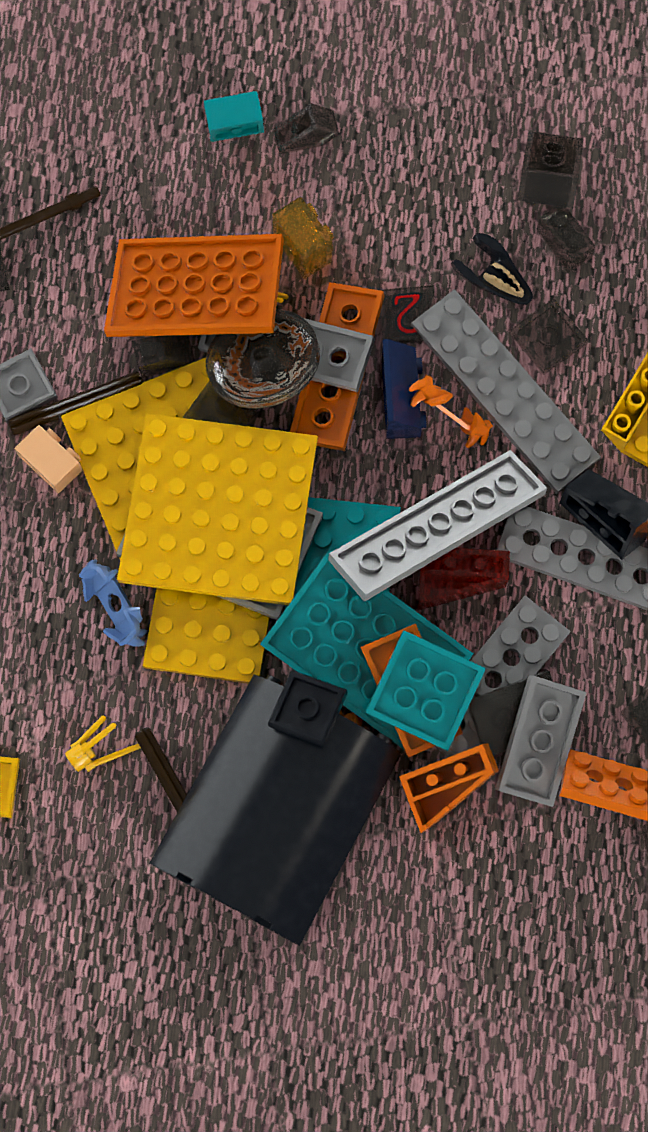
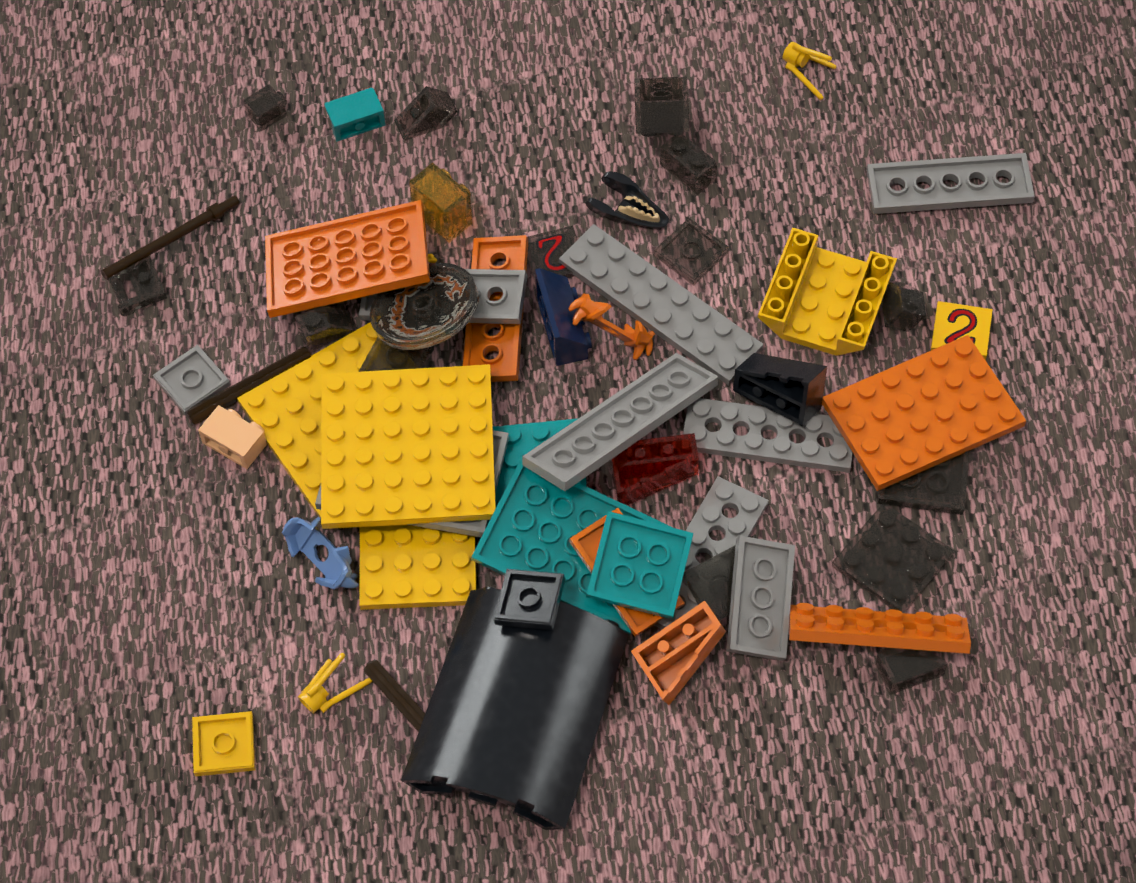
camera: 10 degrees left, 15 degrees down
(144, 91) = (265, 107): none -> clear smoke brick

